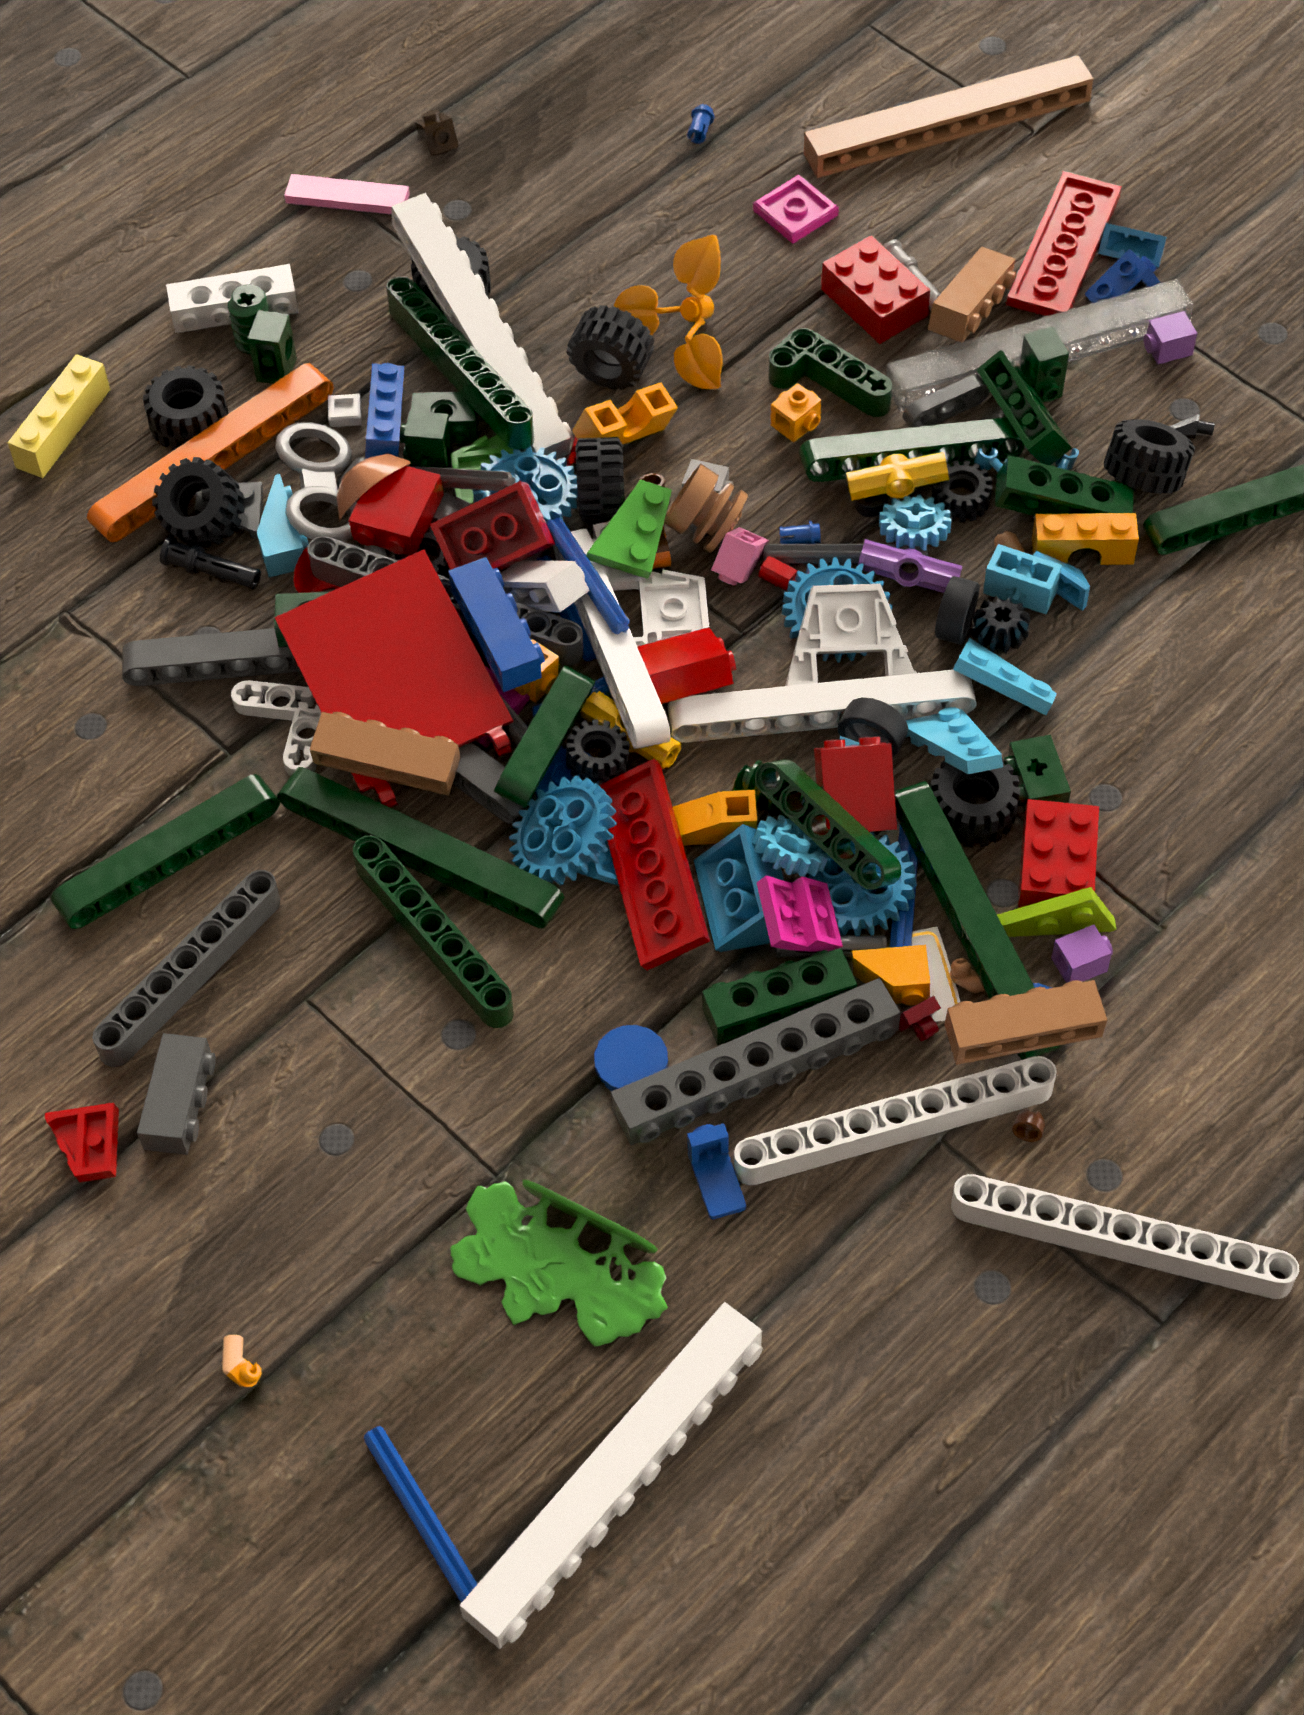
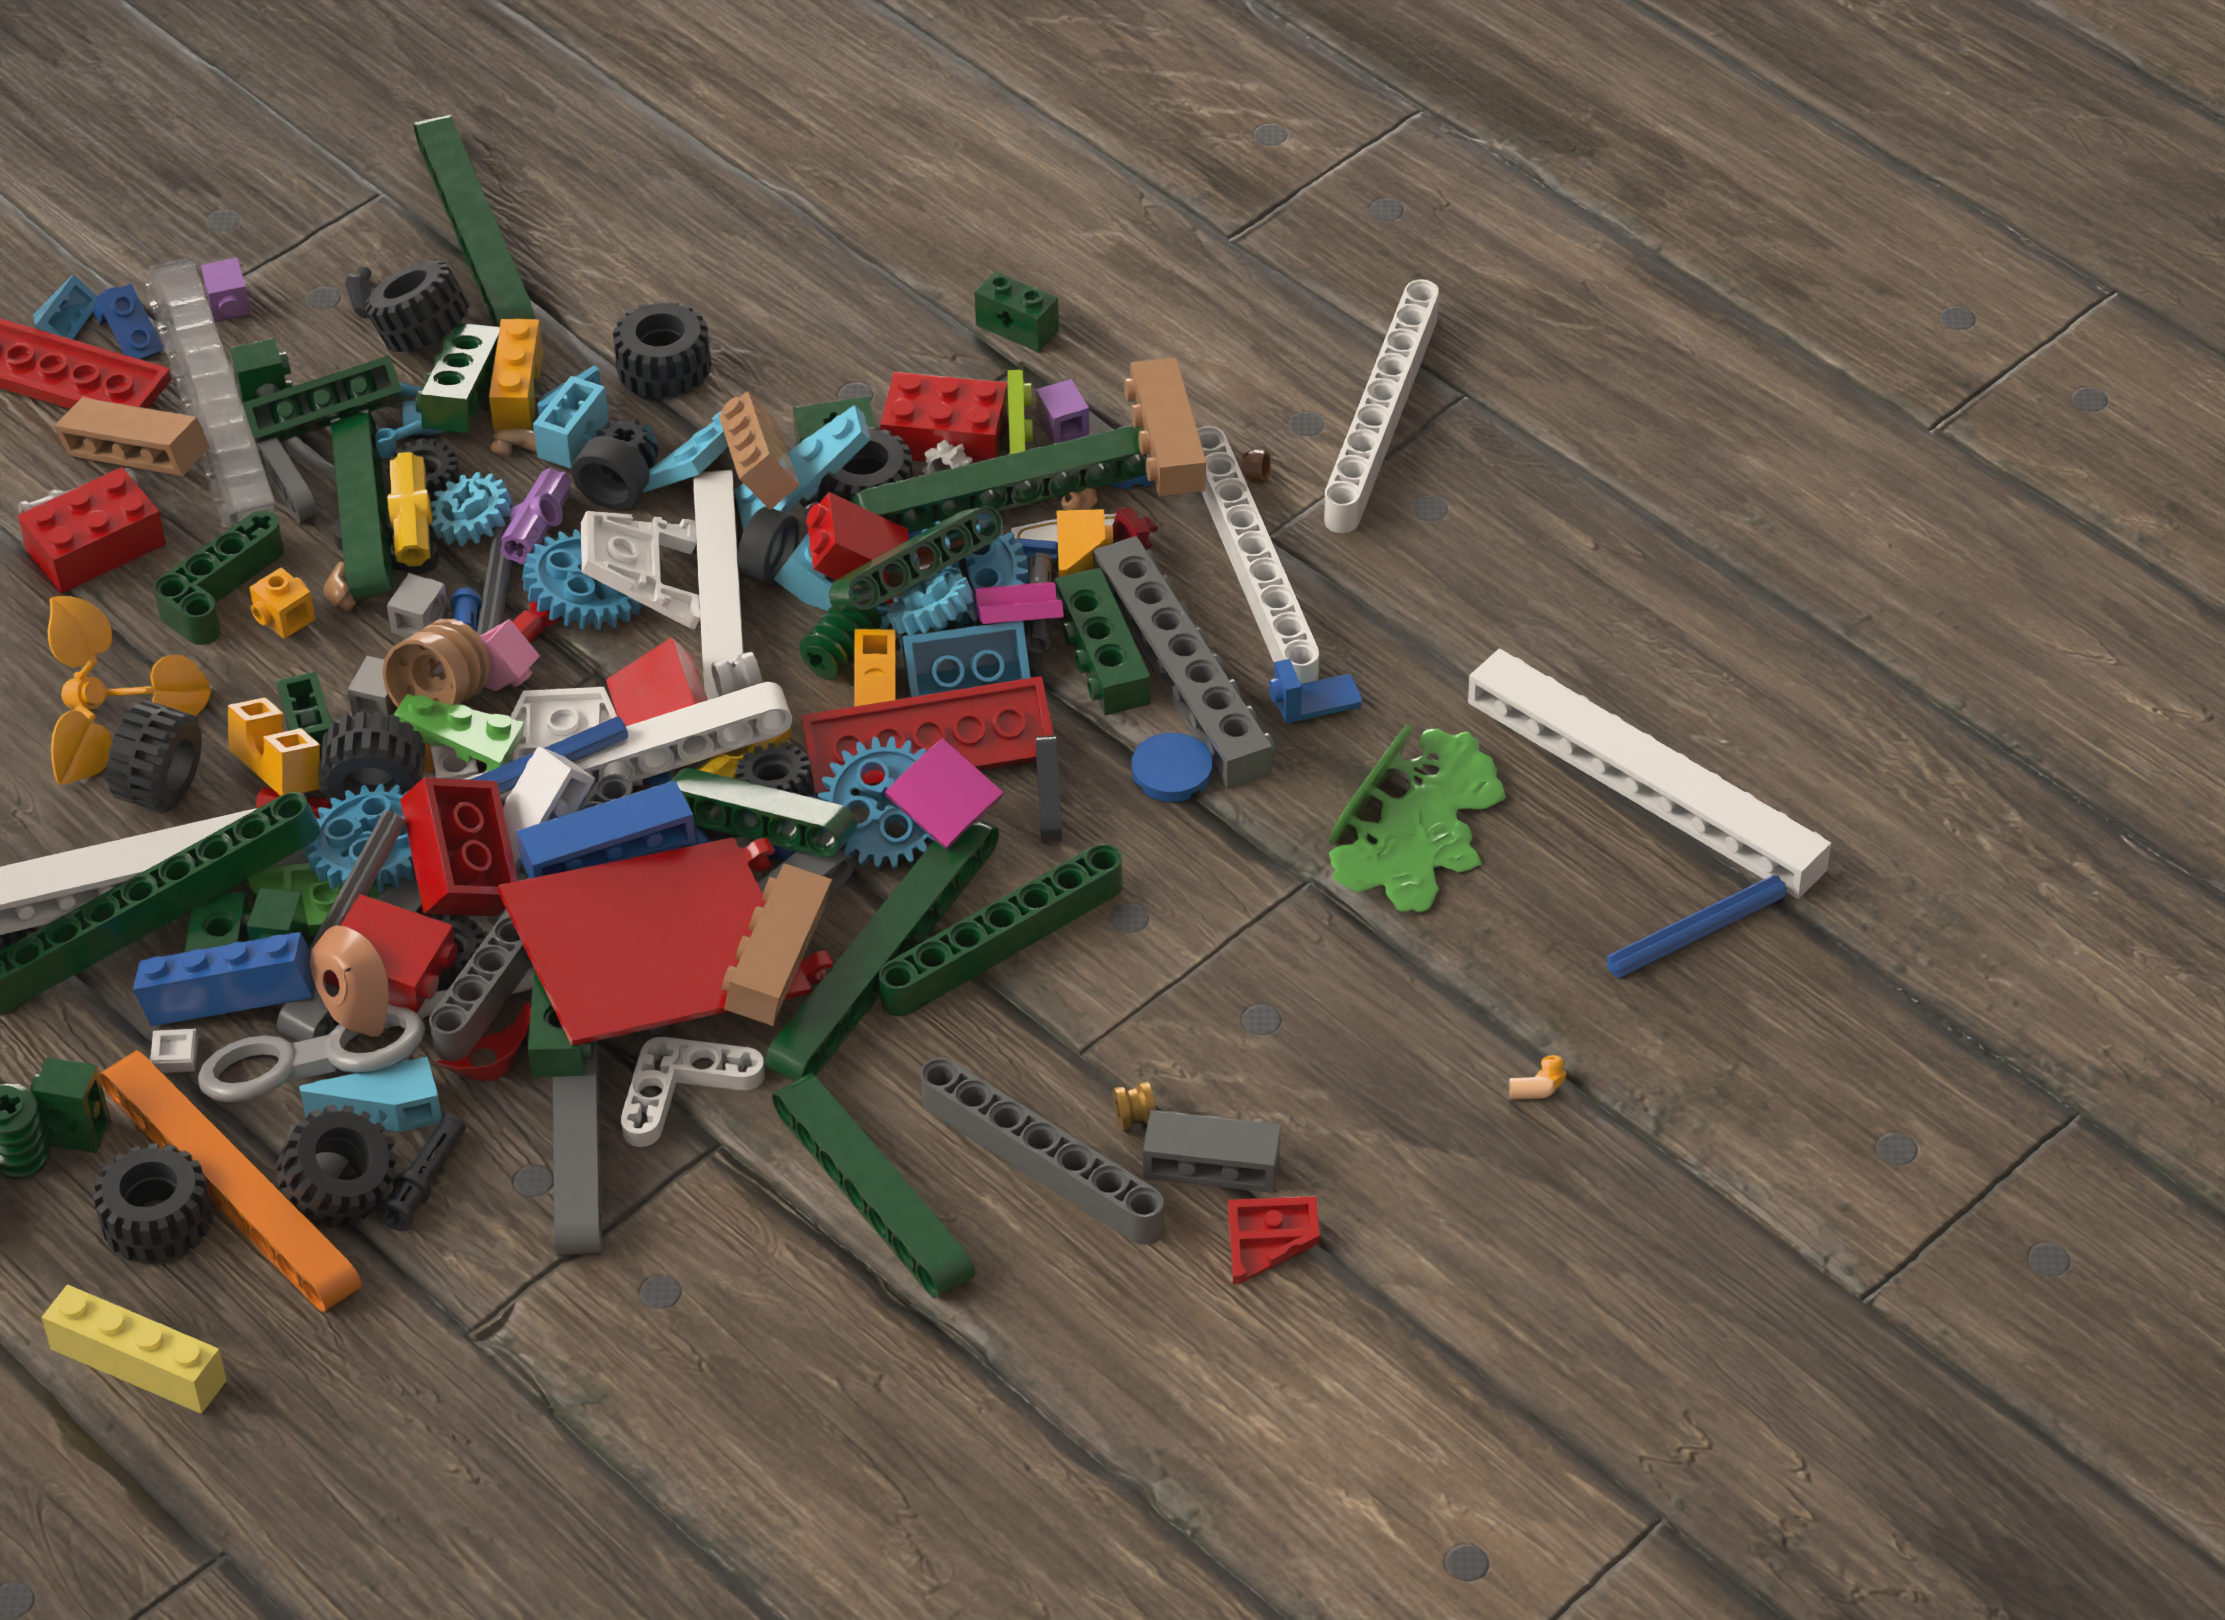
camera: 90 degrees left, 10 degrees down
(229, 1034) = (1133, 1105): none -> pearl gold wheel
(553, 863) = (944, 793): none -> dark pink slope
(590, 957) = (1048, 789): none -> black beam
(662, 440) = (304, 705): none -> dark green brick
(696, 706) = (736, 675): none -> light grey wheel
(800, 501) = (416, 605): none -> light grey brick
(963, 697) = (758, 450): none -> medium nougat brick
(997, 863) = (946, 455): none -> white gear
(1130, 617) = (662, 349): none -> black tyre
(1216, 911) = (1016, 311): none -> dark green brick

